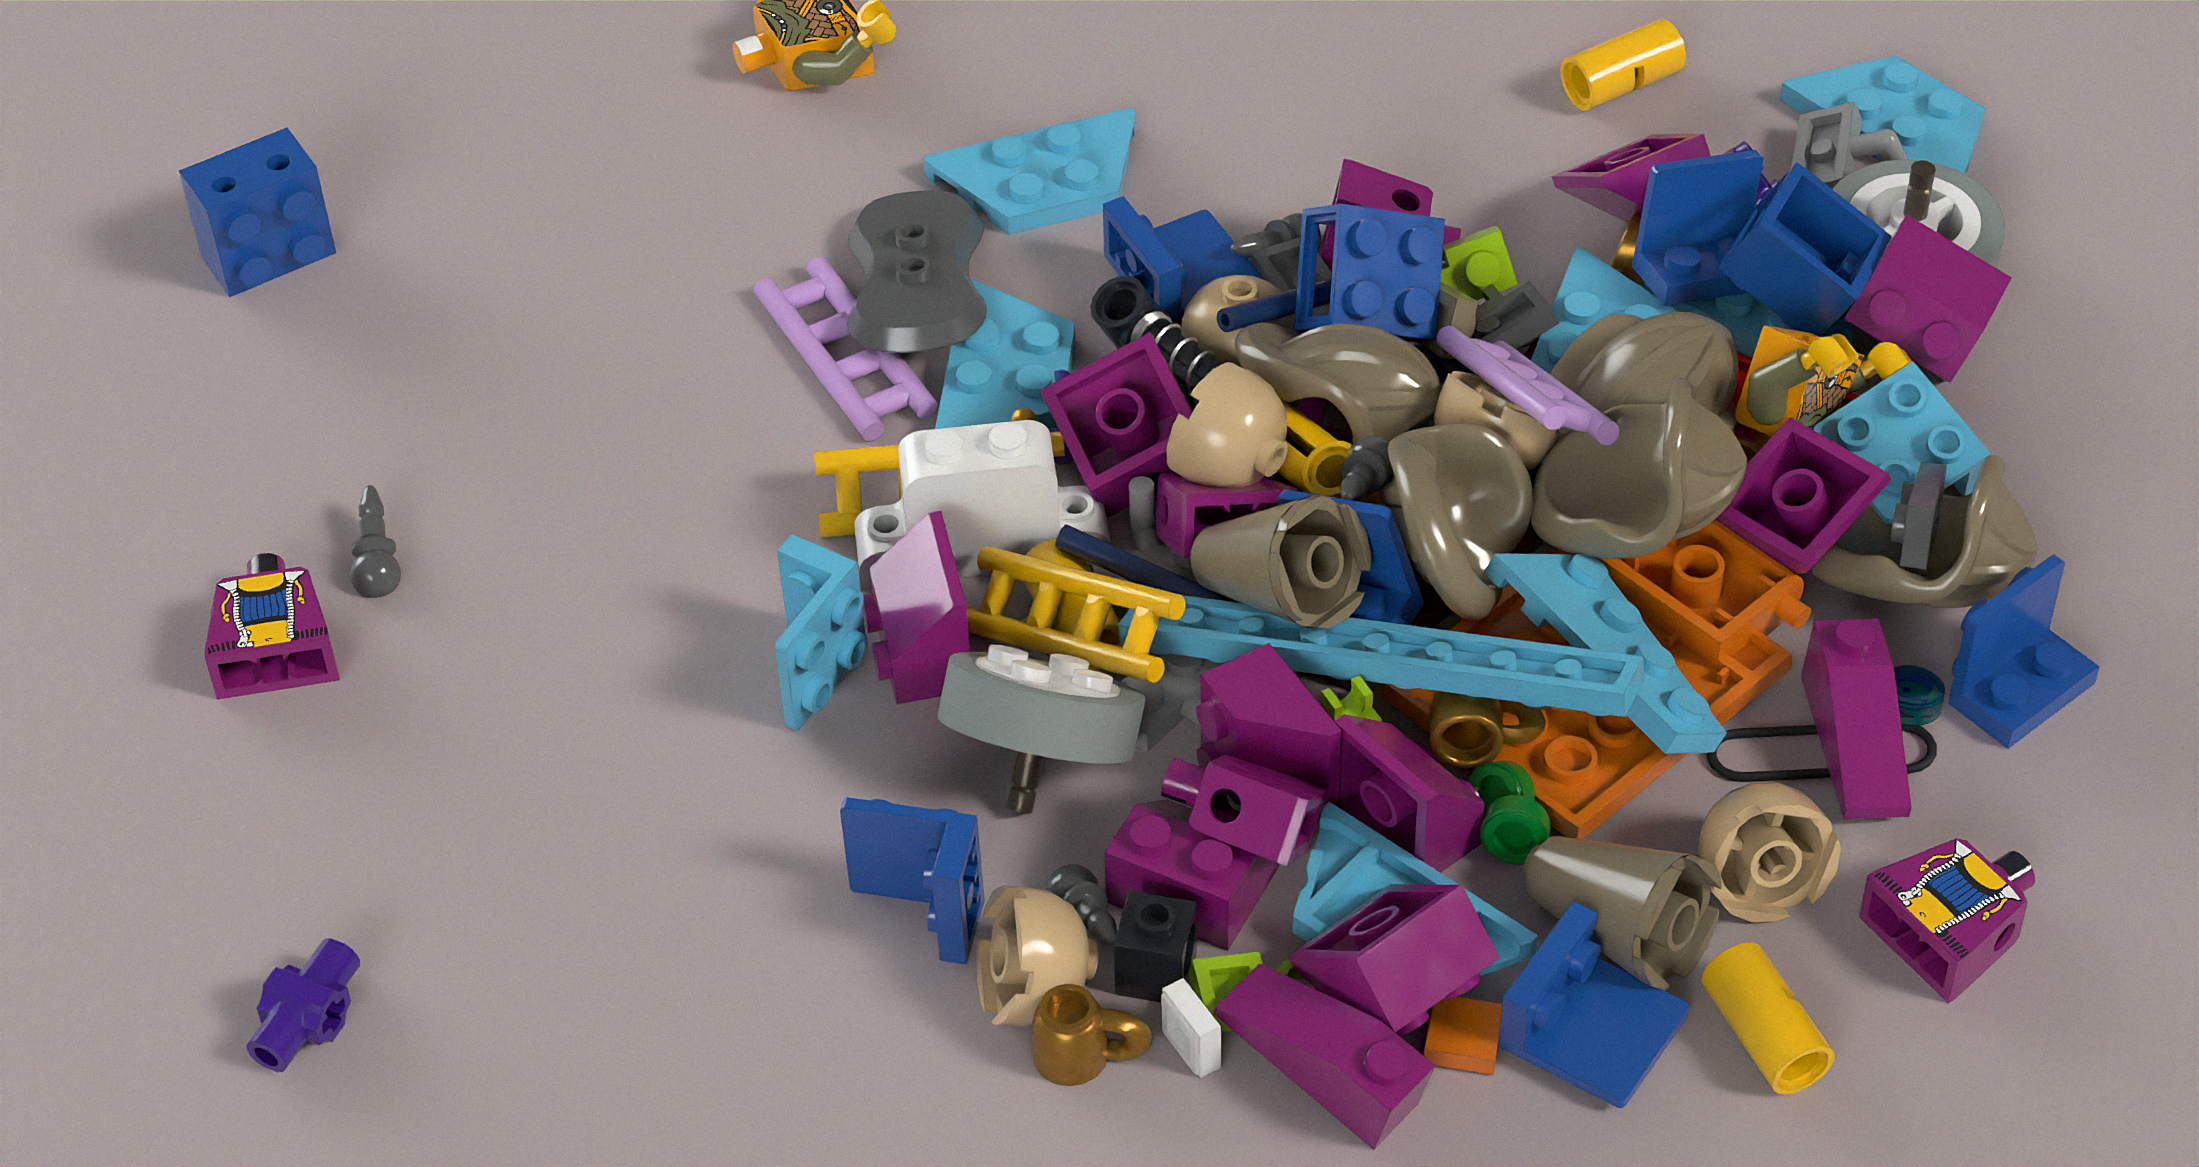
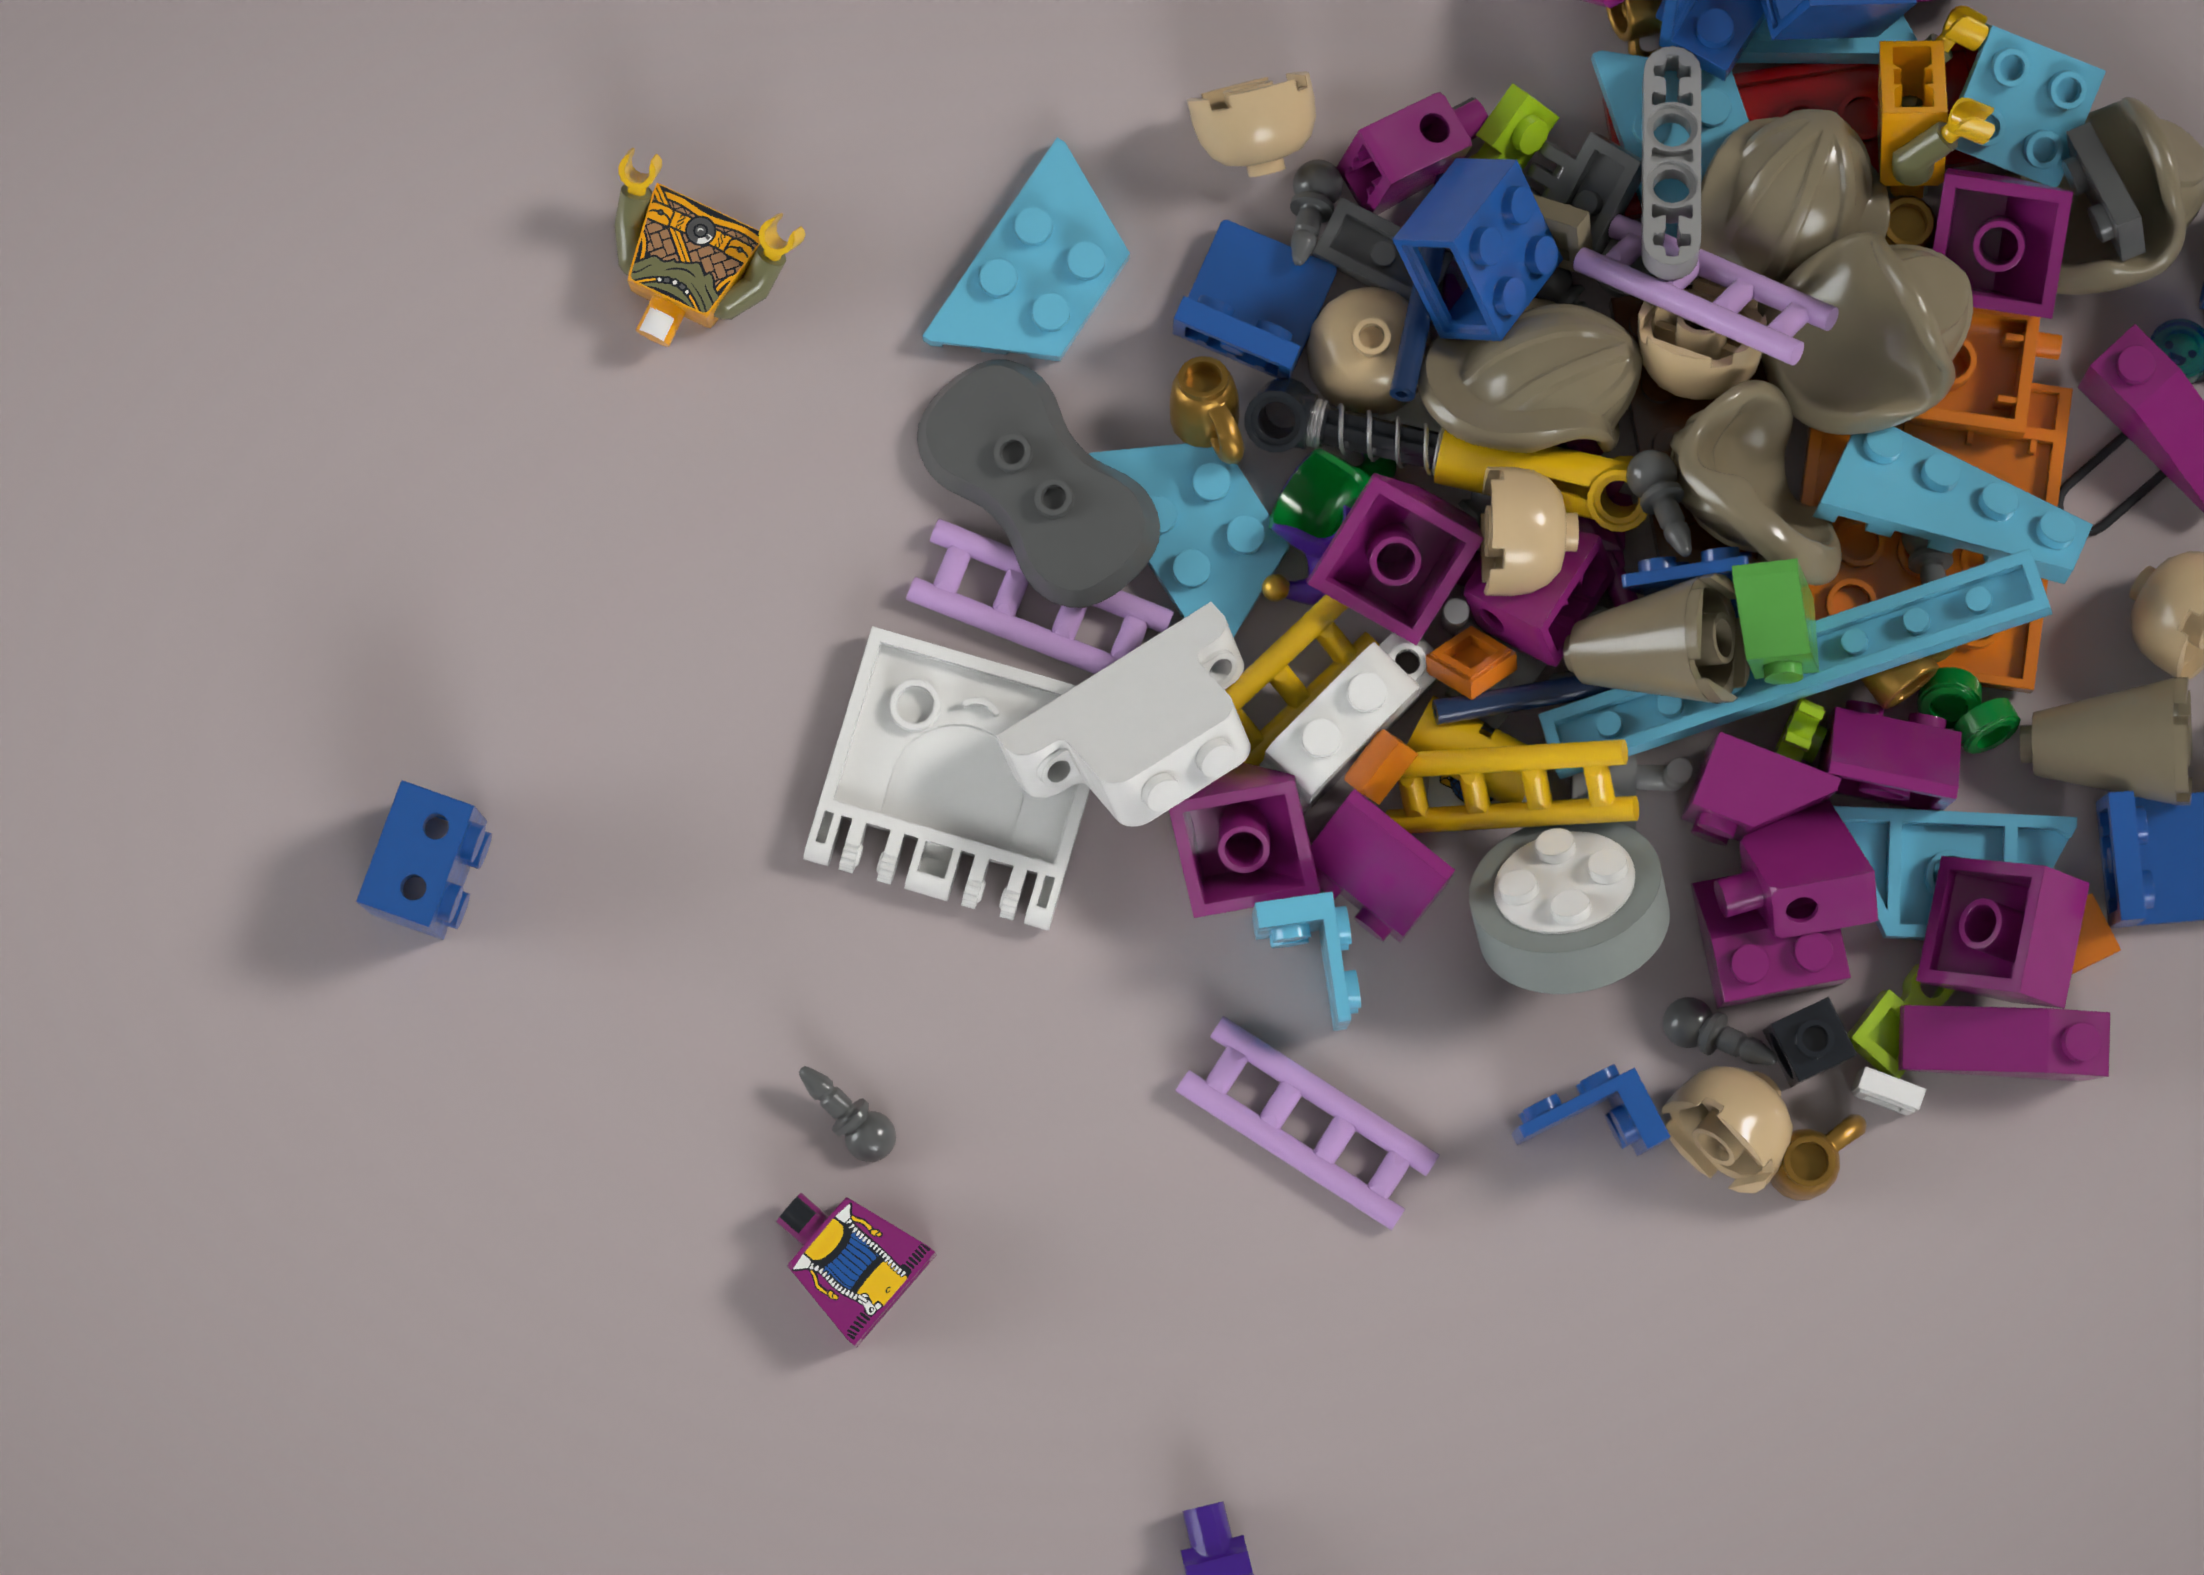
camera: 40 degrees left, 35 degrees up
(682, 394) = (928, 767): none -> white hinge
(683, 794) = (1317, 1162): none -> lavender bar
(827, 501) = (1244, 841): none -> magenta slope
(829, 399) = (1142, 726): none -> white brick
(981, 530) = (1380, 766): none -> orange tile
(1076, 279) = (1207, 408): none -> pearl gold piece
(1123, 529) = (1471, 662): none -> orange tile
(1284, 153) = (1255, 122): none -> tan cylinder
(1382, 572) = (1776, 620): none -> bright green slope
(1569, 306) = (1669, 162): none -> light grey beam

